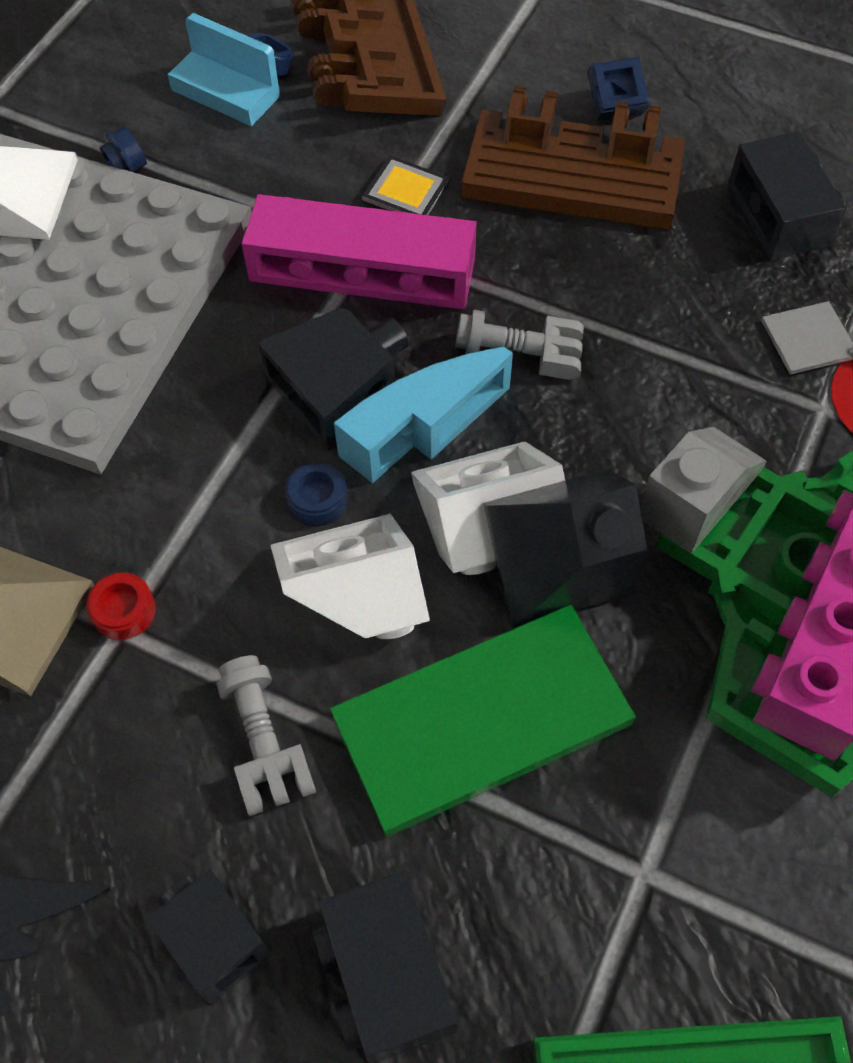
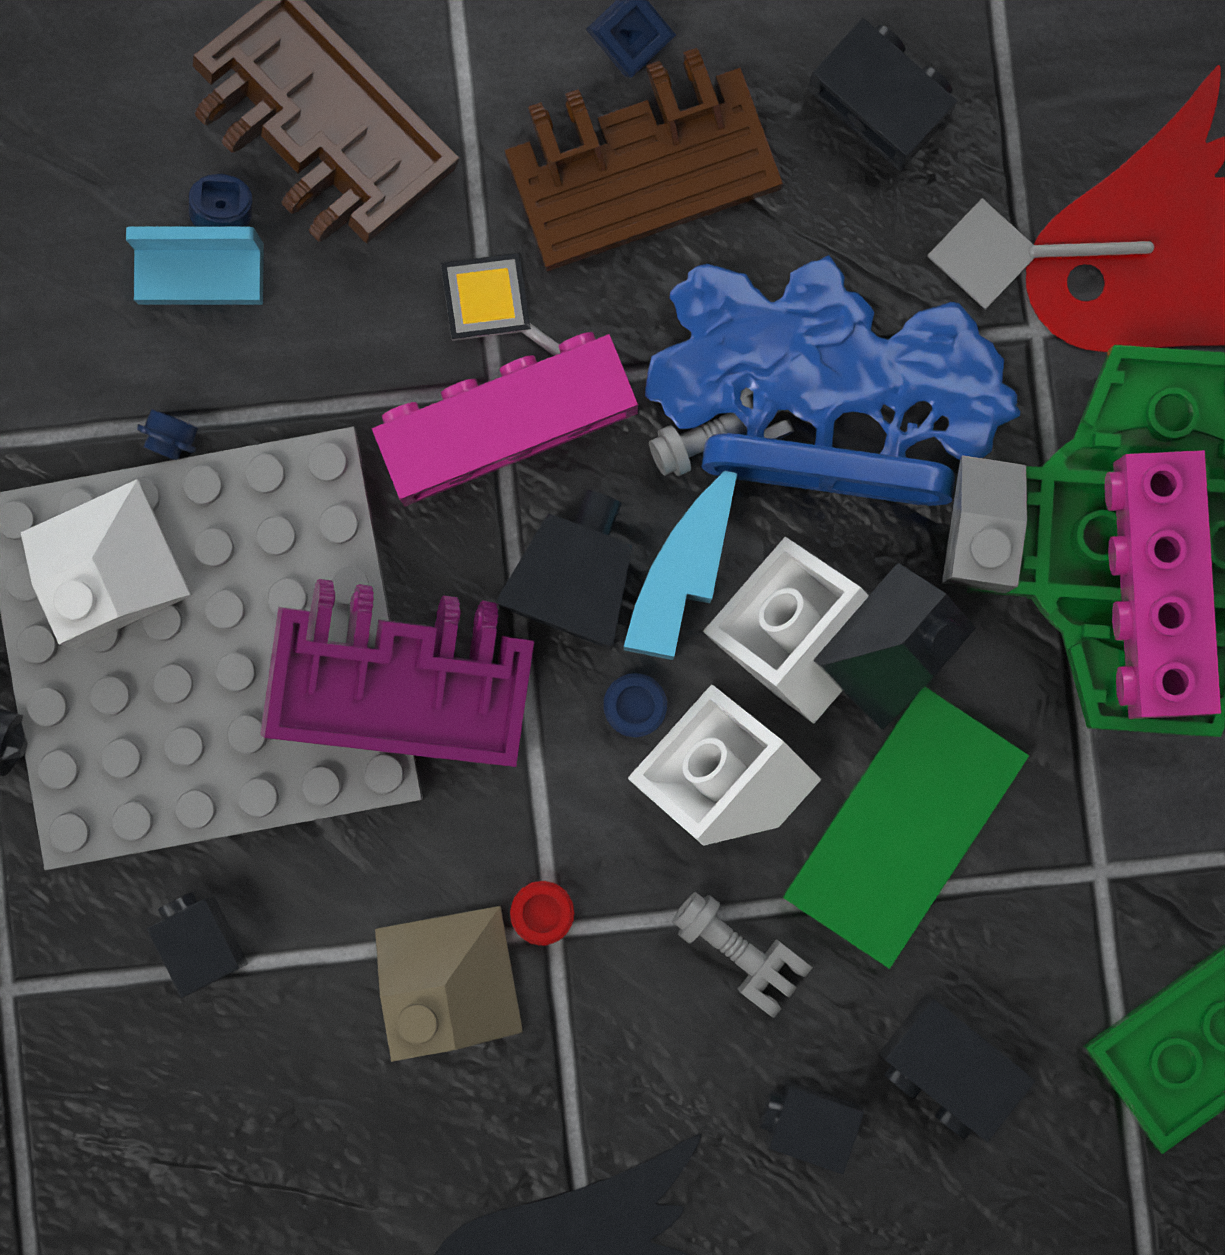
camera: 30 degrees left, 25 degrees up
(135, 358) = (404, 691): none -> magenta hinge
(625, 331) = (821, 361): none -> blue plant

